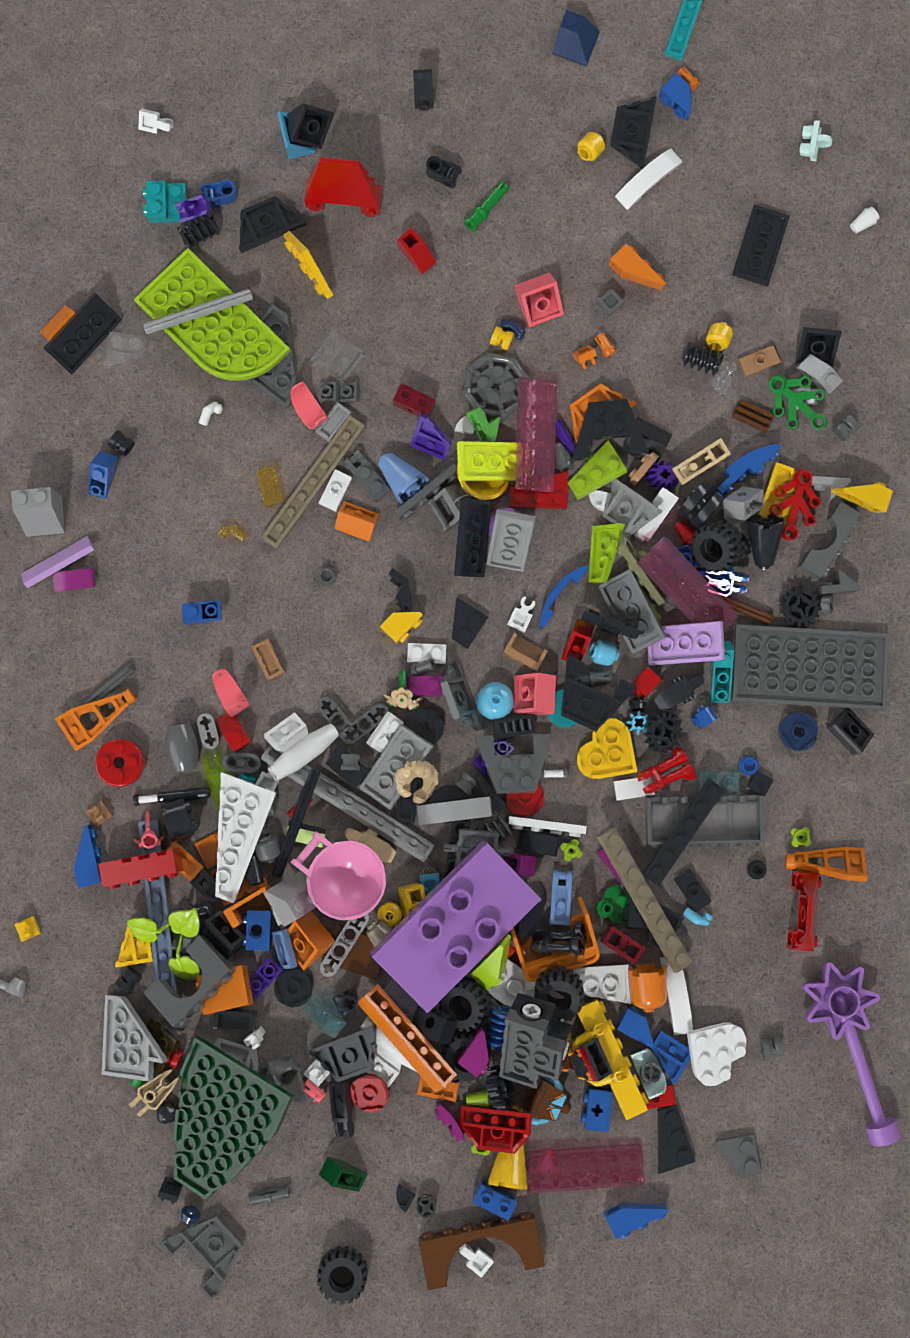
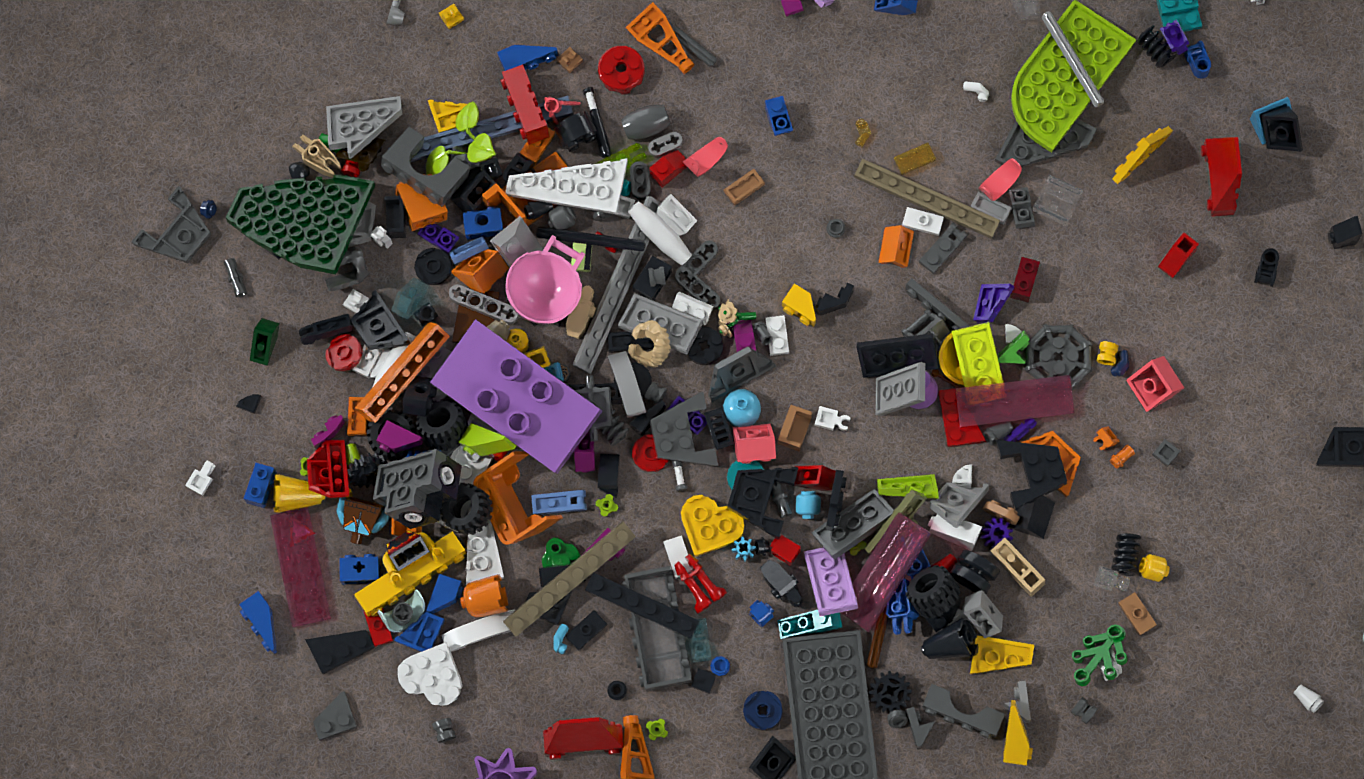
camera: 90 degrees right, 10 degrees down
(121, 443) = (930, 13): black wheel -> none
(128, 980) = (417, 114): black wheel -> none
(170, 1190) = (228, 187): black tile -> none
(266, 222) = (1178, 108): black wing -> none
(314, 1091) = (338, 300): coral pin -> none
(339, 1291) = (165, 342): black tyre -> none
(401, 477) = (946, 279): medium blue cone -> none
(428, 1209) = (242, 420): pearl dark grey wheel -> none
(440, 1247) = (230, 516): reddish brown arch -> none
(466, 623) = (813, 368): black wing -> none
(481, 212) = (1233, 312): green pin -> none
(530, 923) = (532, 473): black slope -> none
(544, 940) = (514, 492): black piece -> none
(555, 827) = (626, 469): white plate -> none
(574, 577) = (836, 441): blue slope -> none
(591, 146) = (1325, 408): yellow head -> none
(597, 472) = (989, 469): lime wing -> none
(622, 944) = (522, 566): dark red brick -> none
(633, 268) = (1207, 469): orange slope -> none
(648, 177) = (1307, 472): white slope -> none
(662, 731) = (742, 580): black gear -> none
(748, 463) = (1029, 622): blue slope -> none
(756, 409) = (1083, 601): reddish brown tile -> none
(760, 245) = (1260, 597): black tile -> none
(796, 502) = (997, 670): red plant -> none
(819, 343) = (1163, 668): black slope -> none
(821, 374) = (1133, 673): light grey slope -> none

